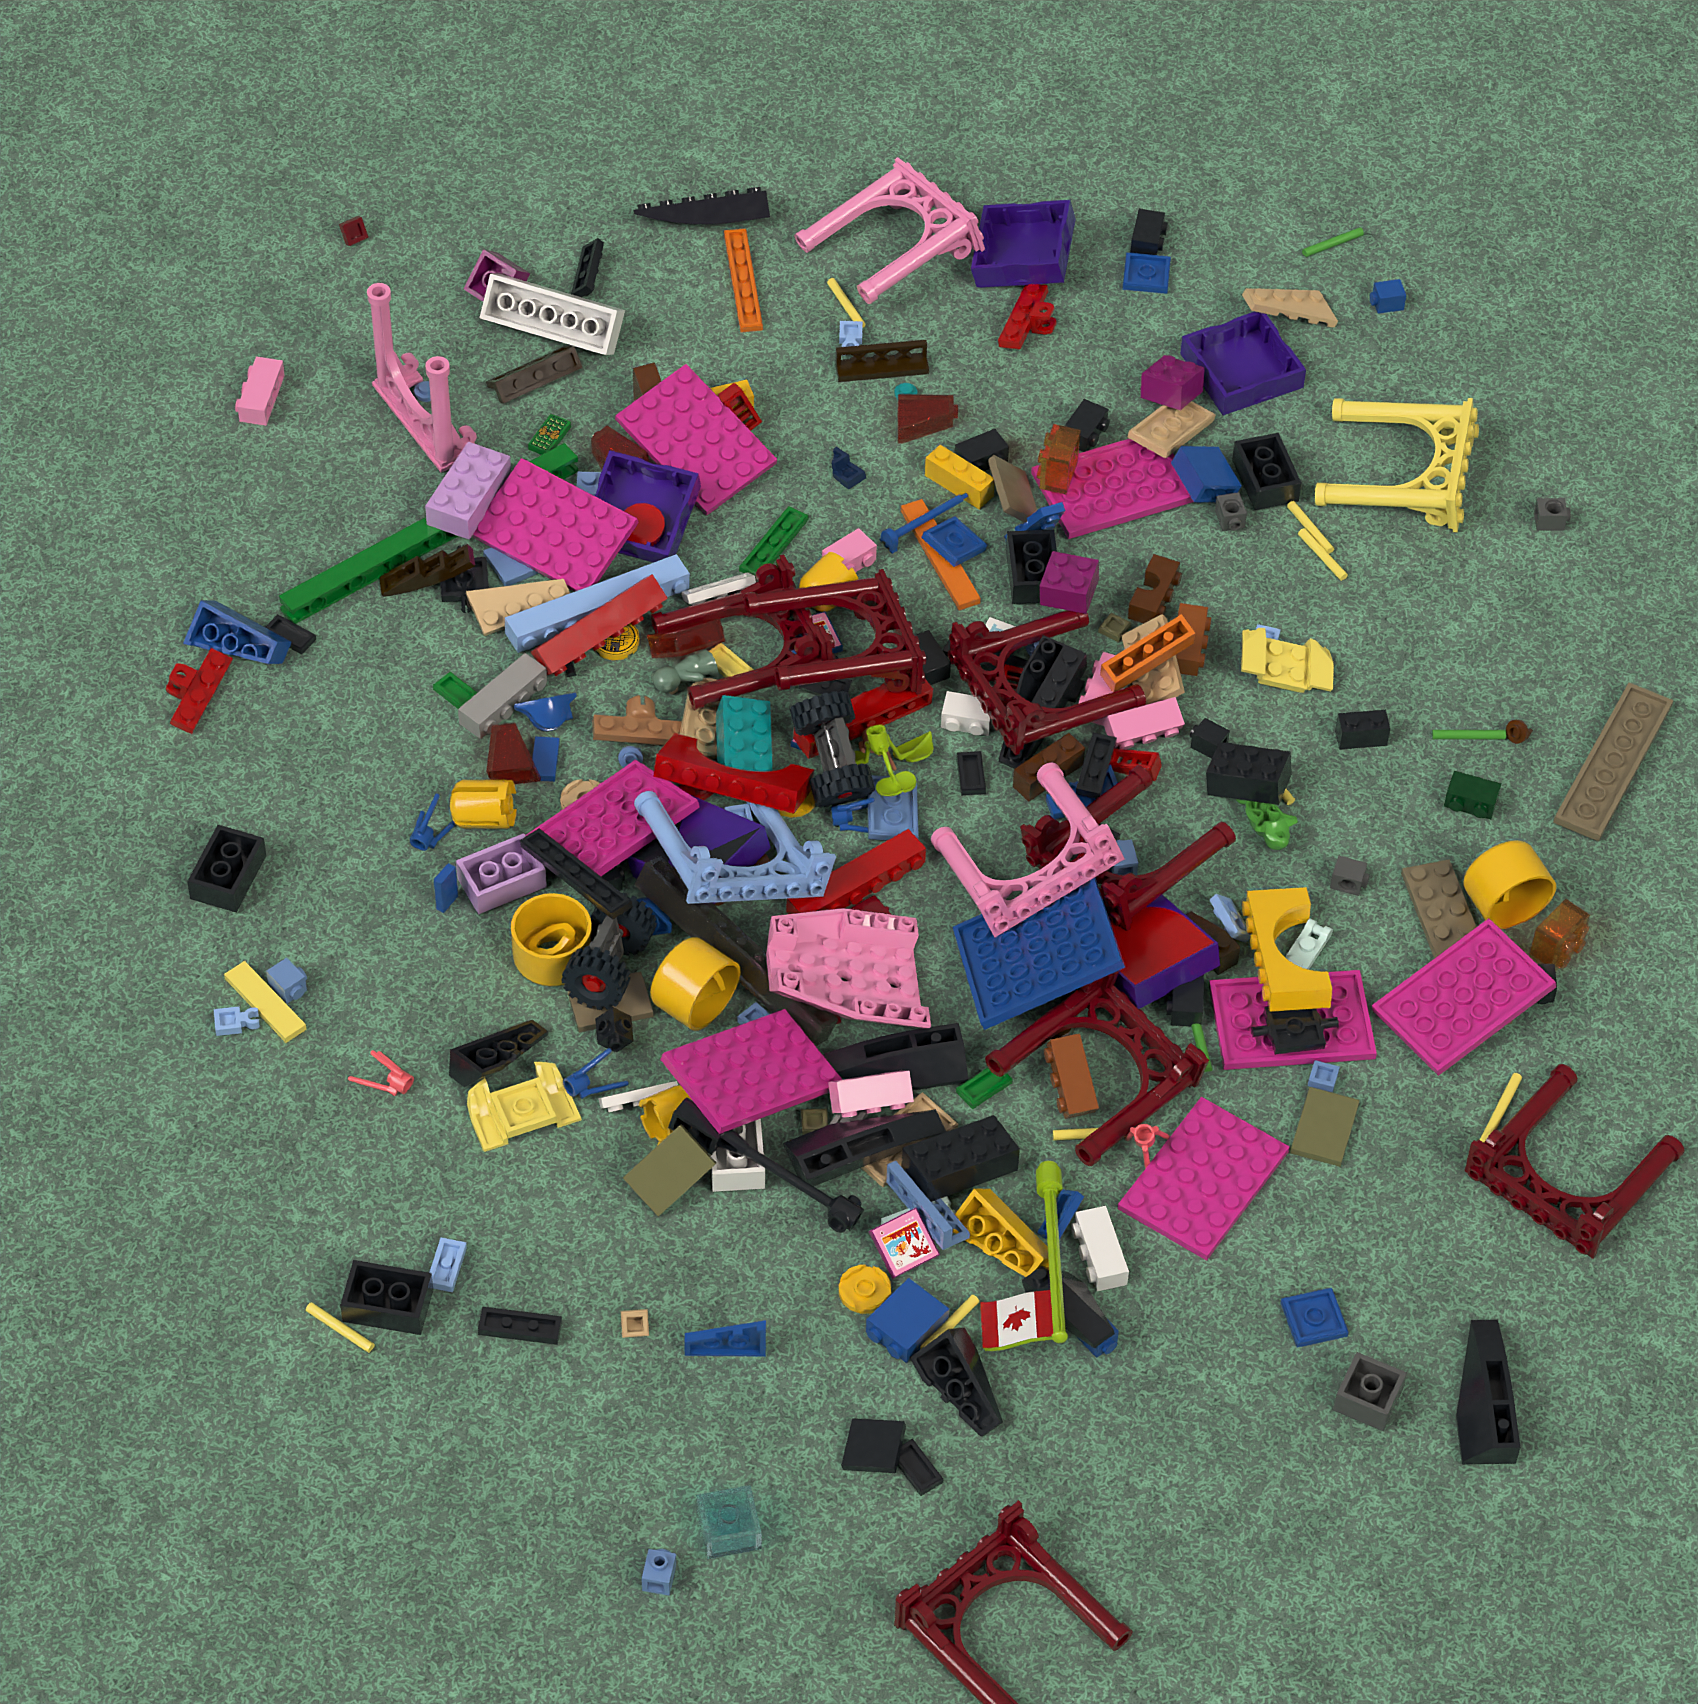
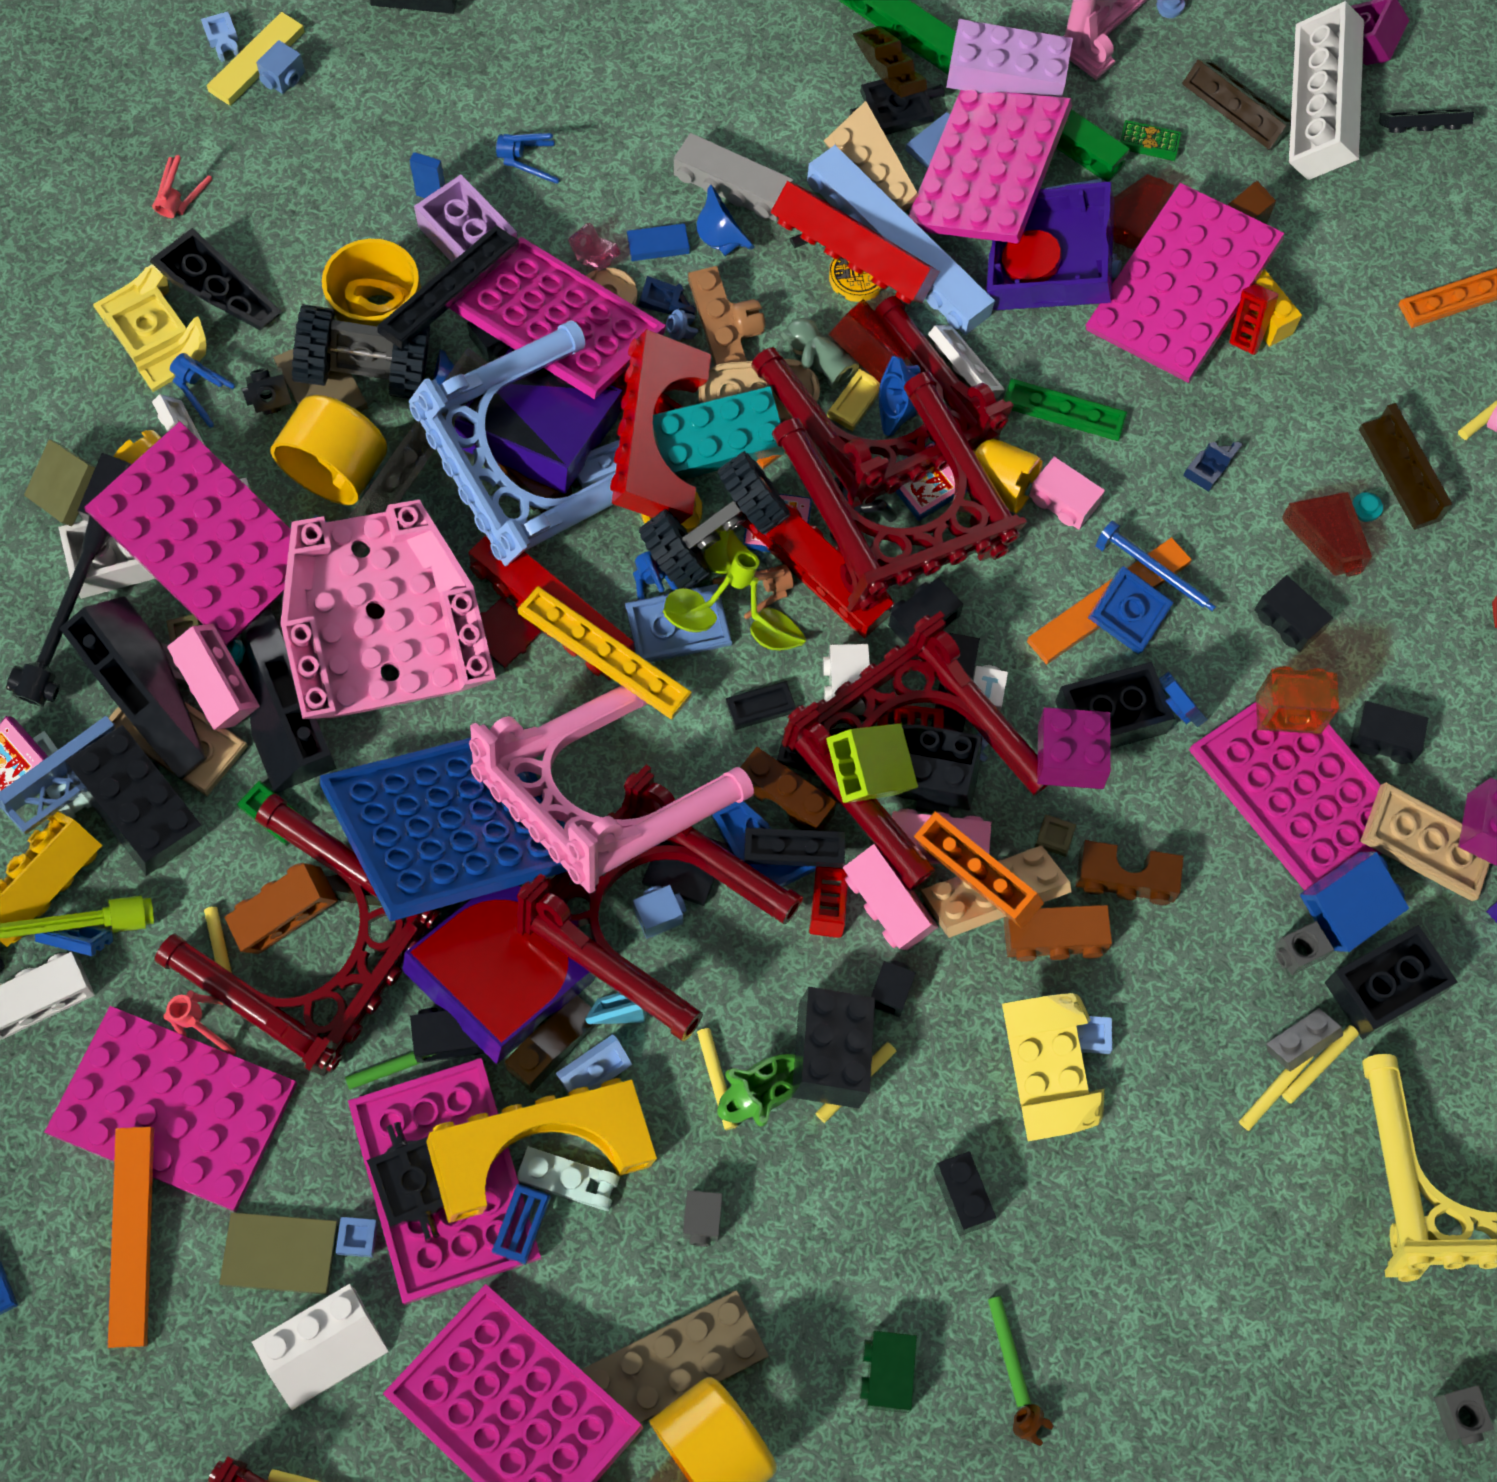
camera: 75 degrees right, 15 degrees up
(454, 690) = (734, 131): green tile -> none
(483, 804) = (552, 198): yellow cylinder -> none
(510, 756) = (644, 202): clear red slope -> none
(544, 798) = (592, 249): none -> clear pink bracket
(600, 763) = (664, 297): none -> dark blue slope
(742, 632) = (893, 401): none -> blue hat
(850, 333) = (1437, 422): light blue plate -> none
(914, 845) = (605, 652): none -> yellow tile
(959, 476) = (1240, 594): yellow brick -> none
(1012, 489) = (1234, 662): dark tan tile -> none
(1057, 690) = (871, 762): none -> lime brick
(1190, 892) = (615, 1010): none -> medium azure slope
(1251, 853) = (714, 1068): none -> light yellow bar
(1293, 529) = (1304, 1039): none -> flat silver plate
(1297, 1207) = (131, 1237): none -> orange tile
(1338, 980) = (511, 1253): none -> blue tile
(1394, 1107) = (320, 1347): none -> white slope

